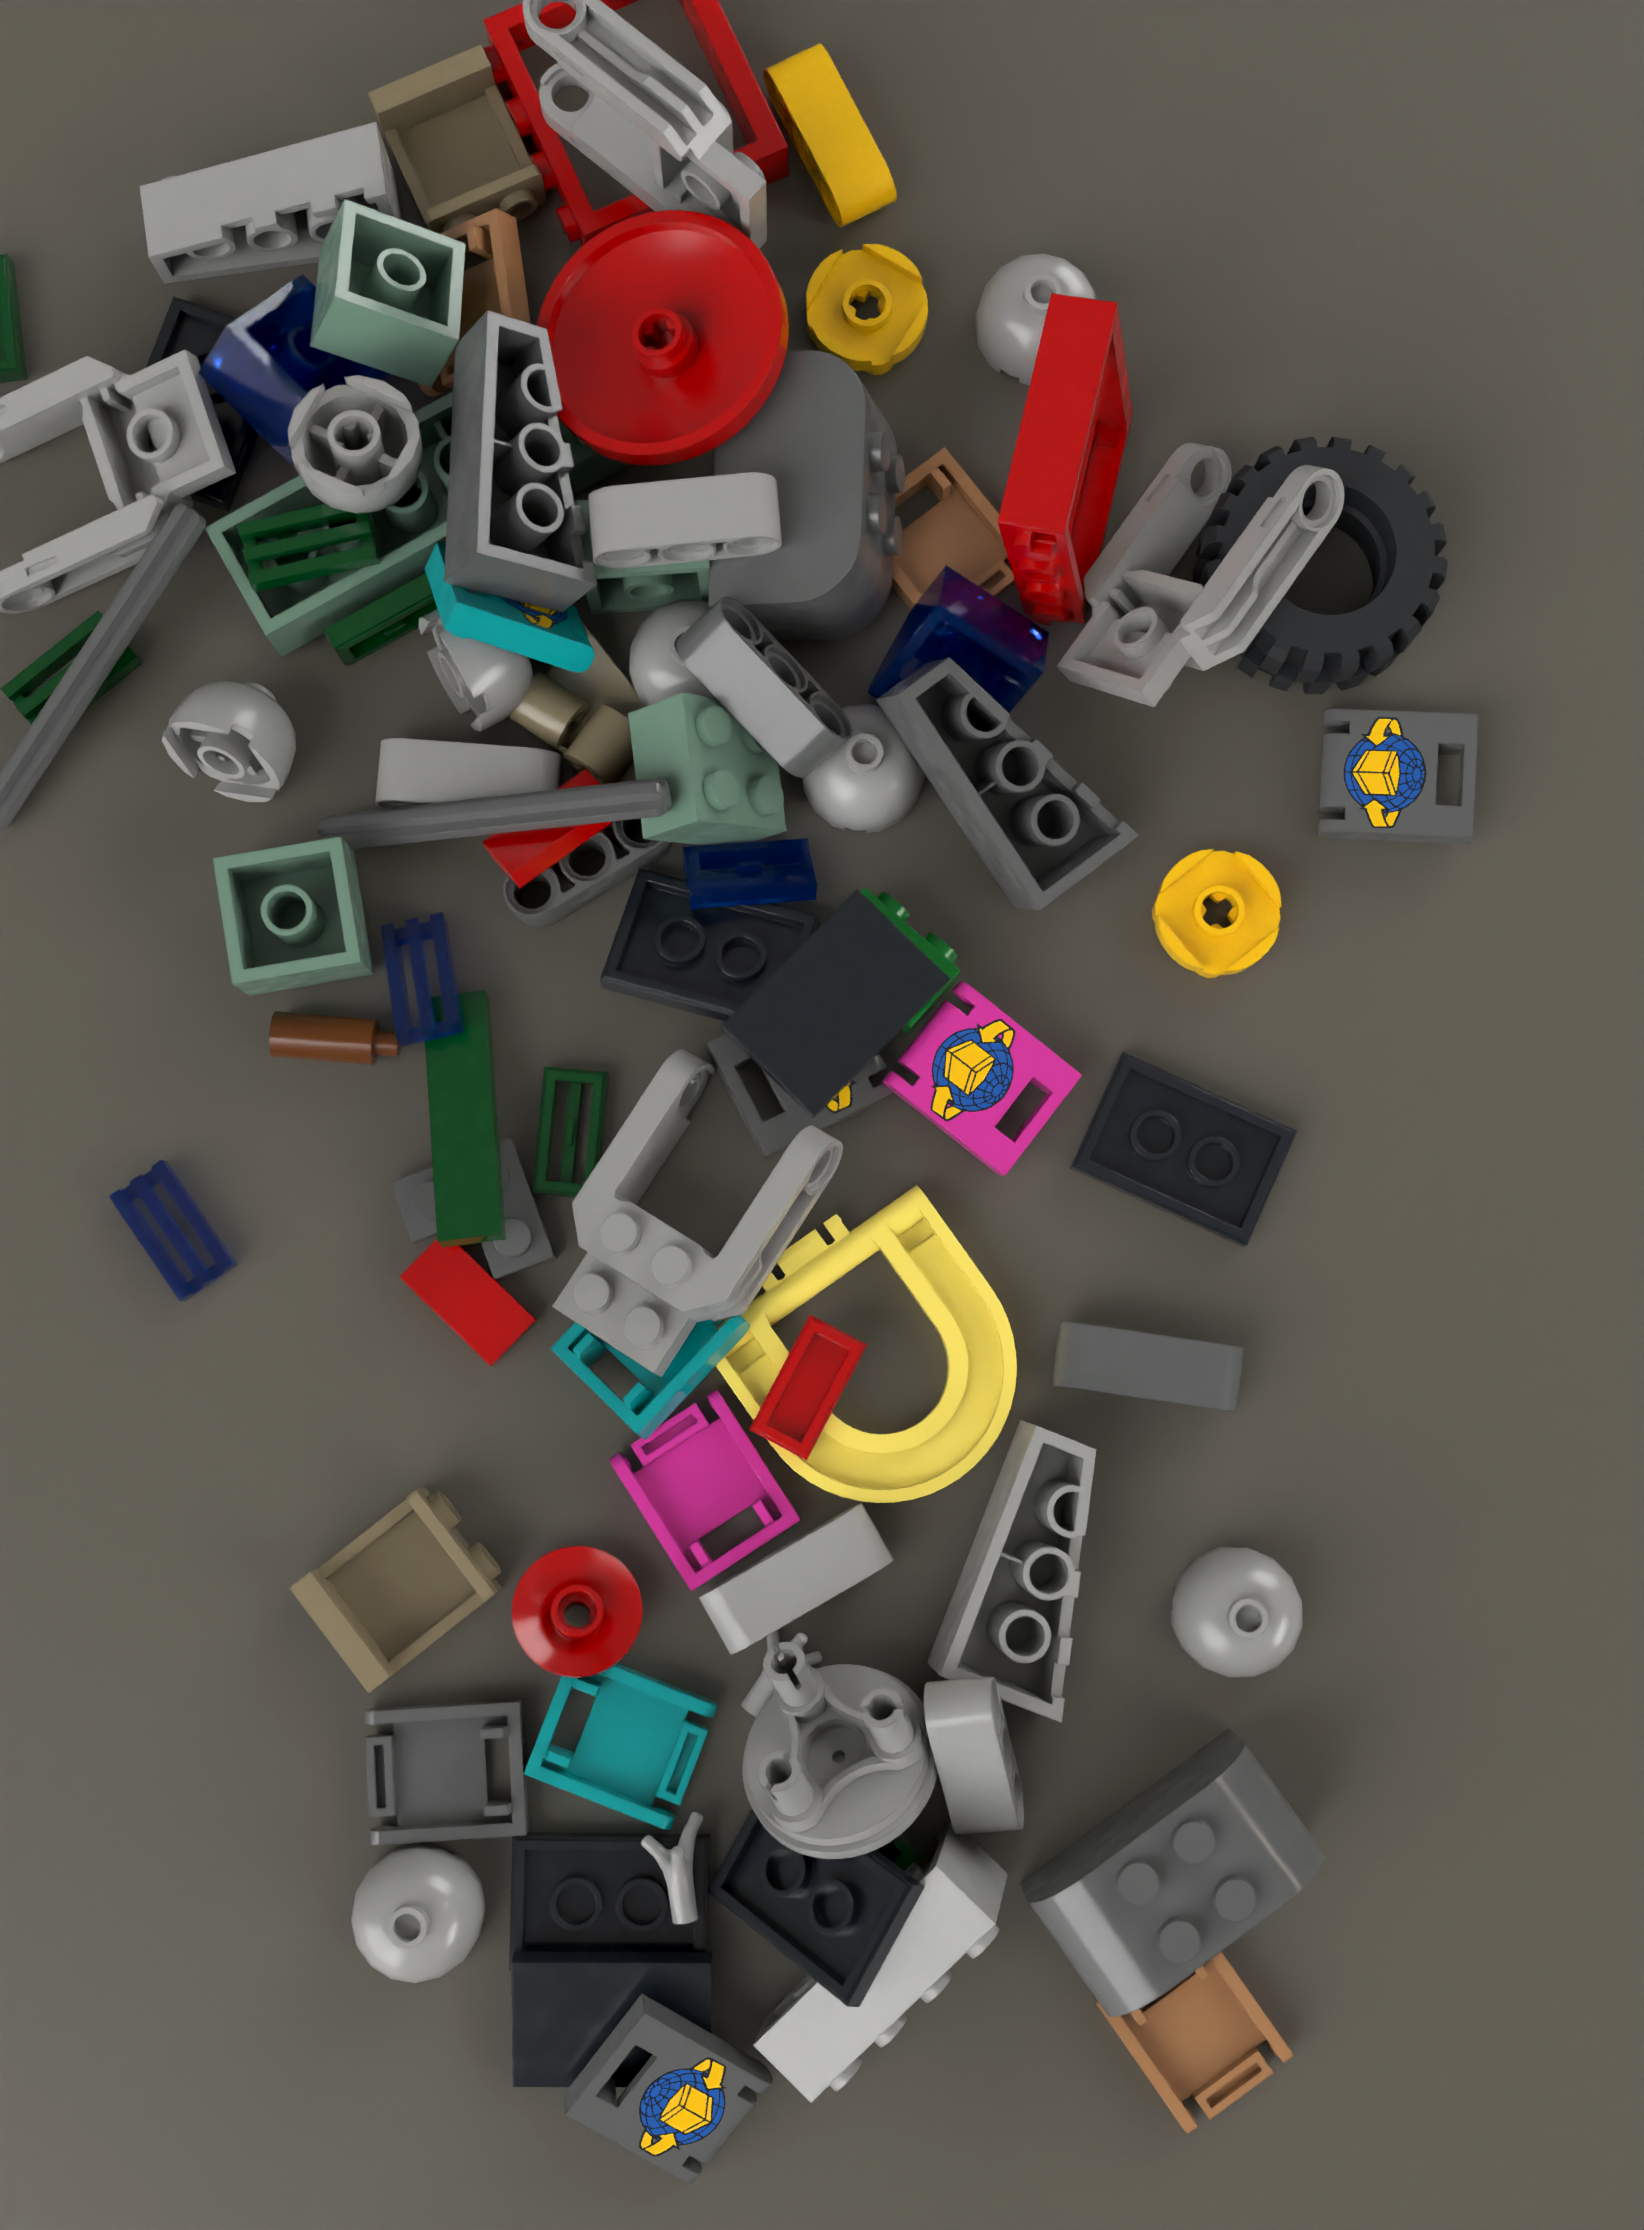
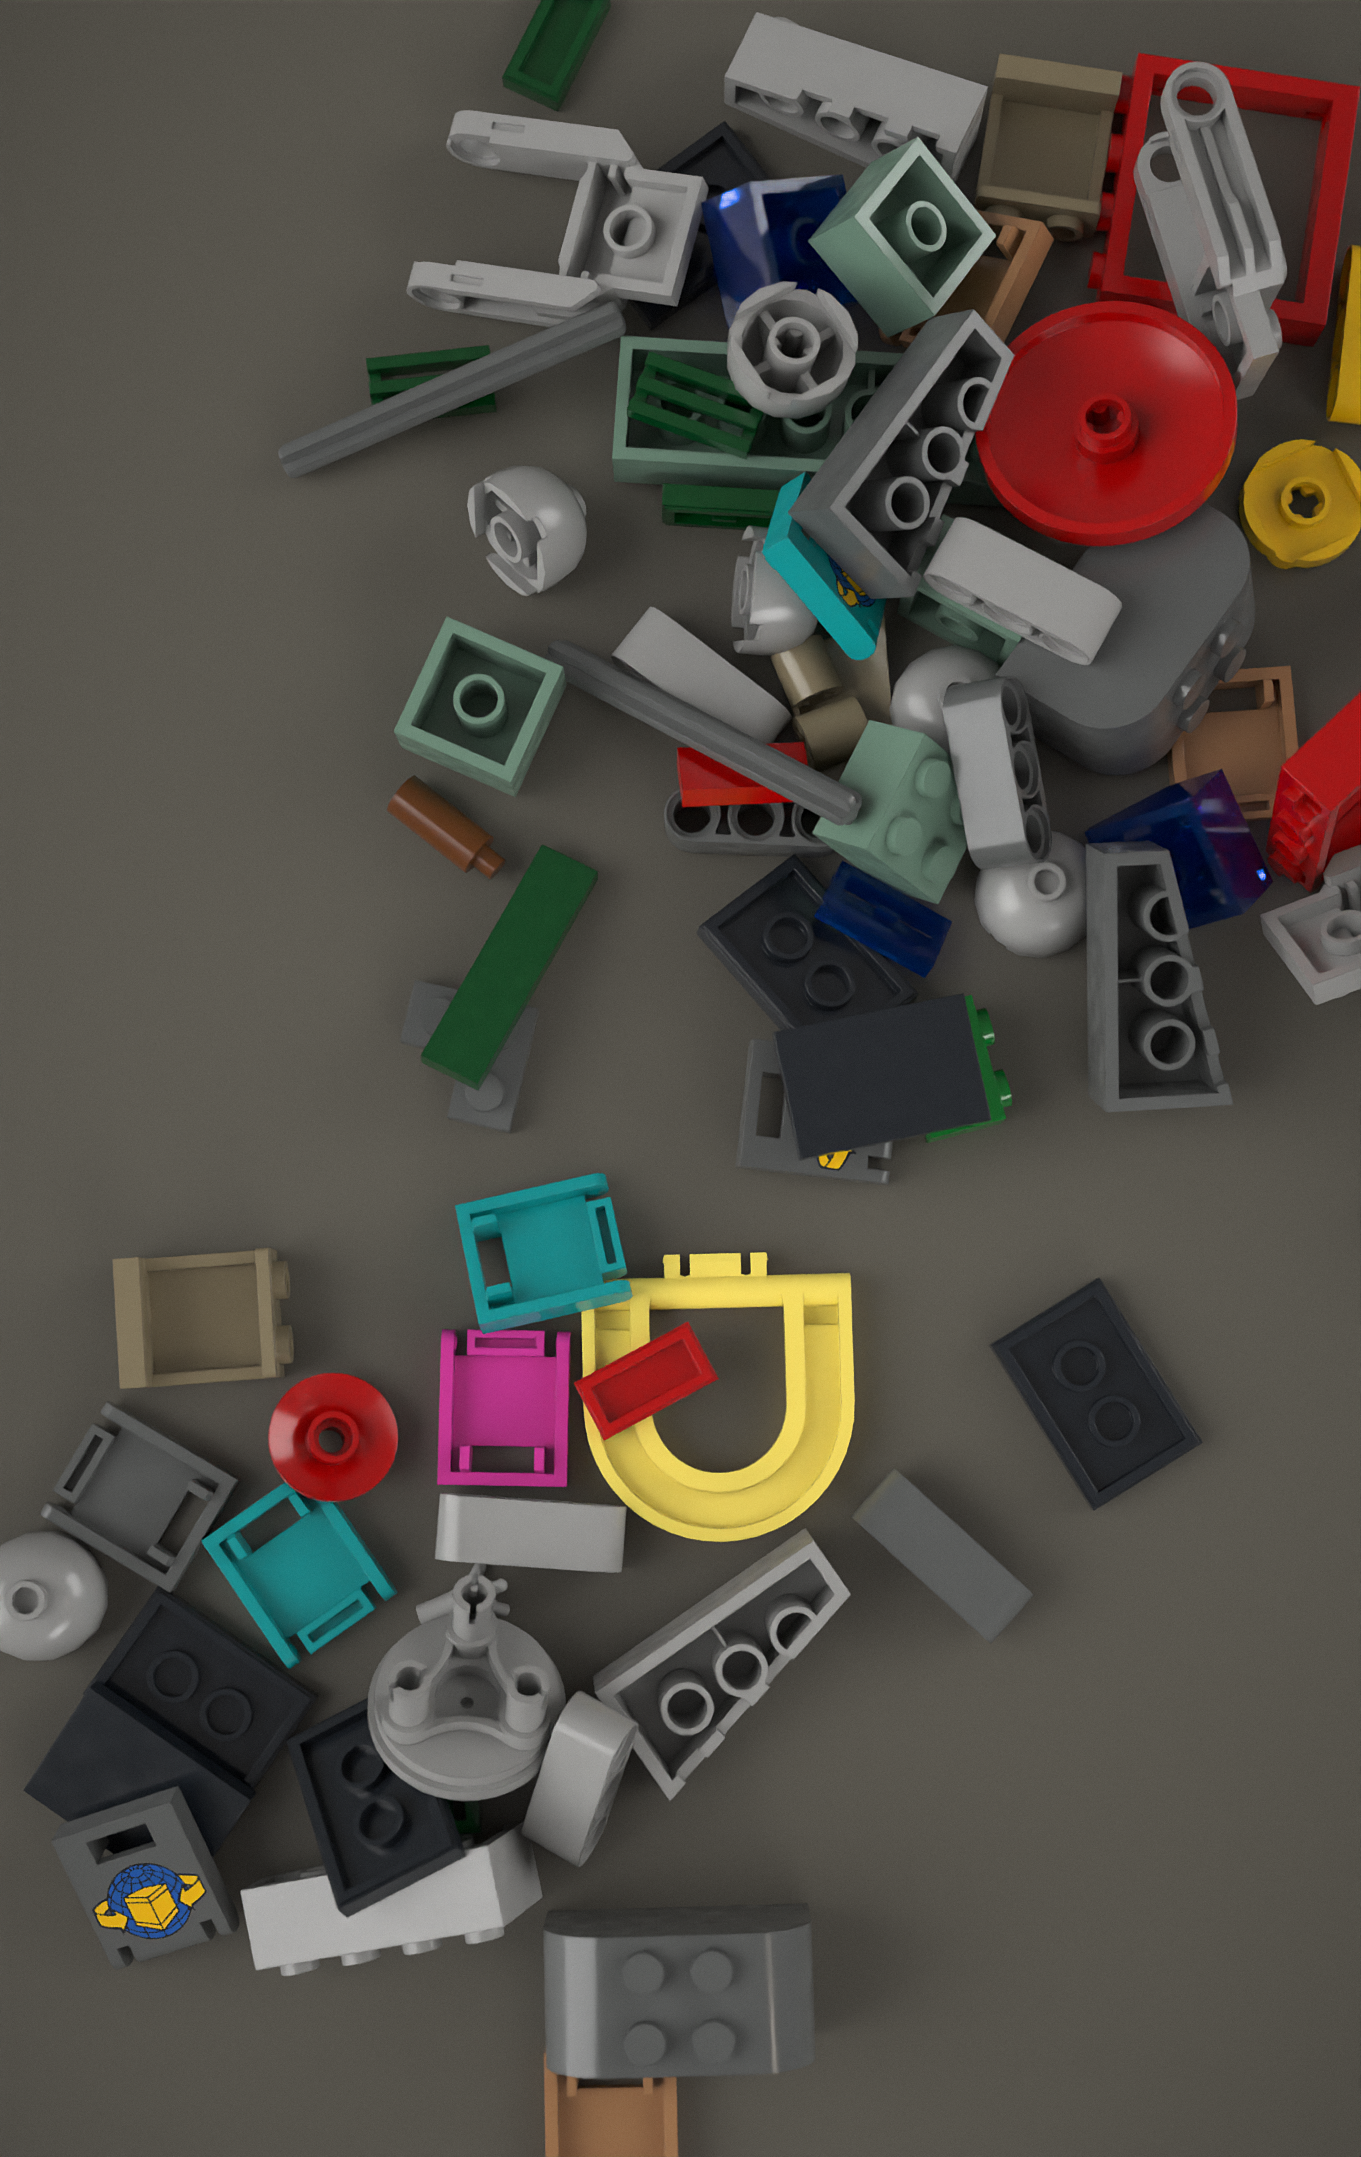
camera: 40 degrees right, 0 degrees up
(142, 1187) = (210, 848): clear blue tile -> none
(414, 935) = (570, 786): clear blue tile -> none
(469, 1300) = (414, 1120): red tile -> none
(576, 1079) = (557, 1079): dark green tile -> none
(645, 1280) = (569, 1200): light grey plate -> none
(678, 1870) = (274, 1705): light grey bar -> none
(973, 1073) = (960, 1212): dark pink container -> none
(1220, 876) = (1286, 1237): yellow plate -> none
(1236, 1612) = (879, 1811): light grey cylinder -> none

